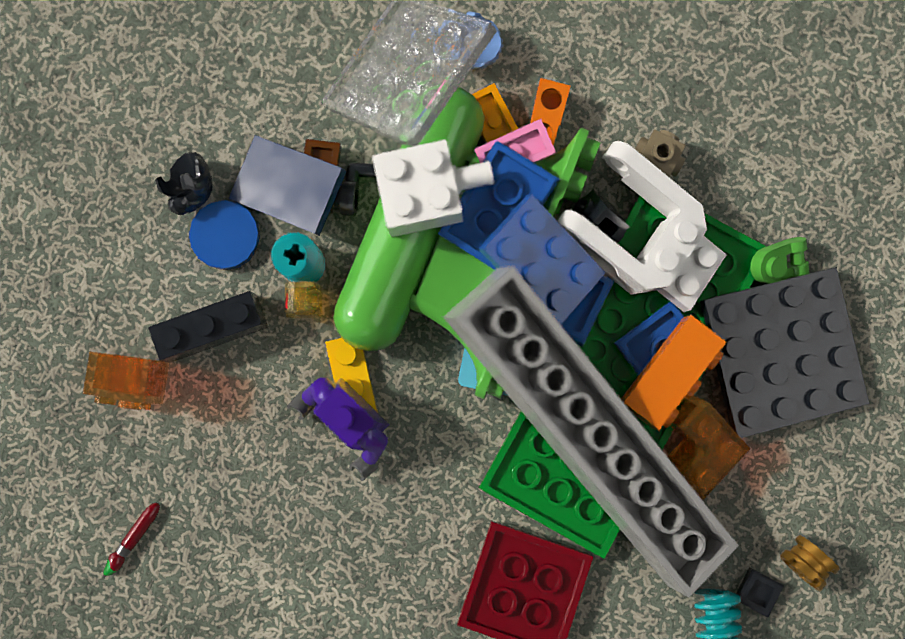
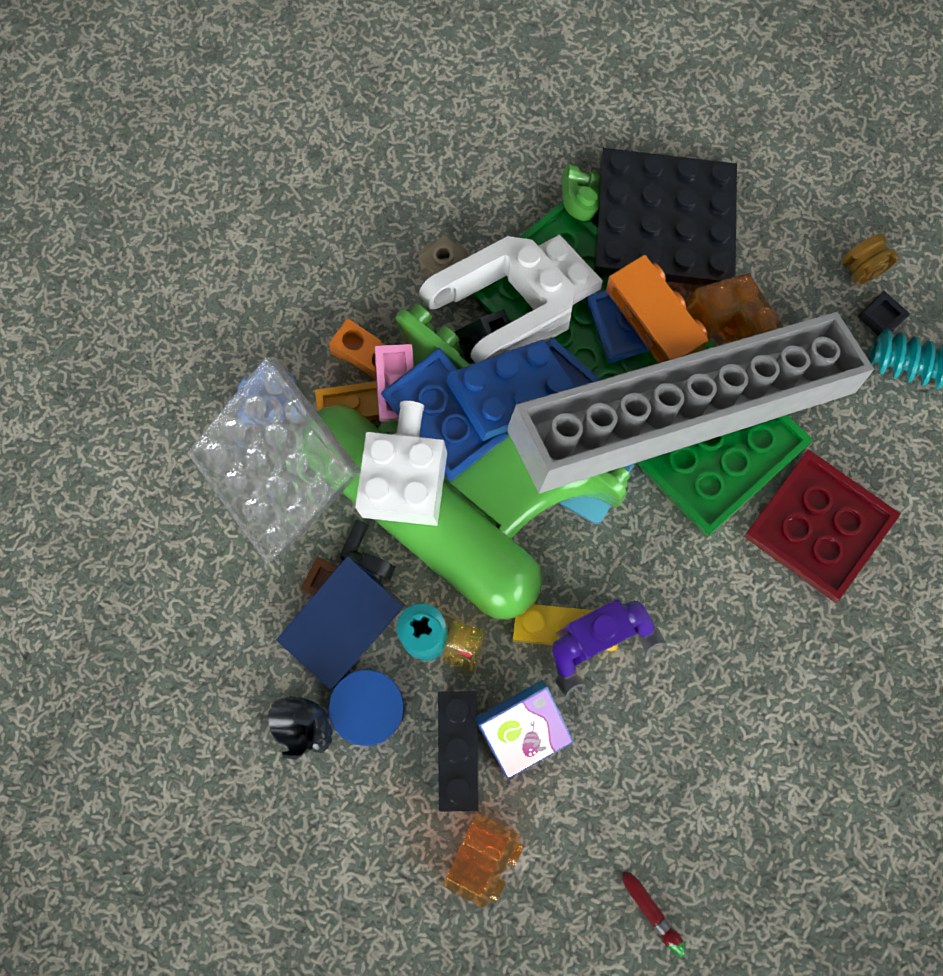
camera: 65 degrees left, 10 degrees down
(245, 377) = (524, 729): none -> tile

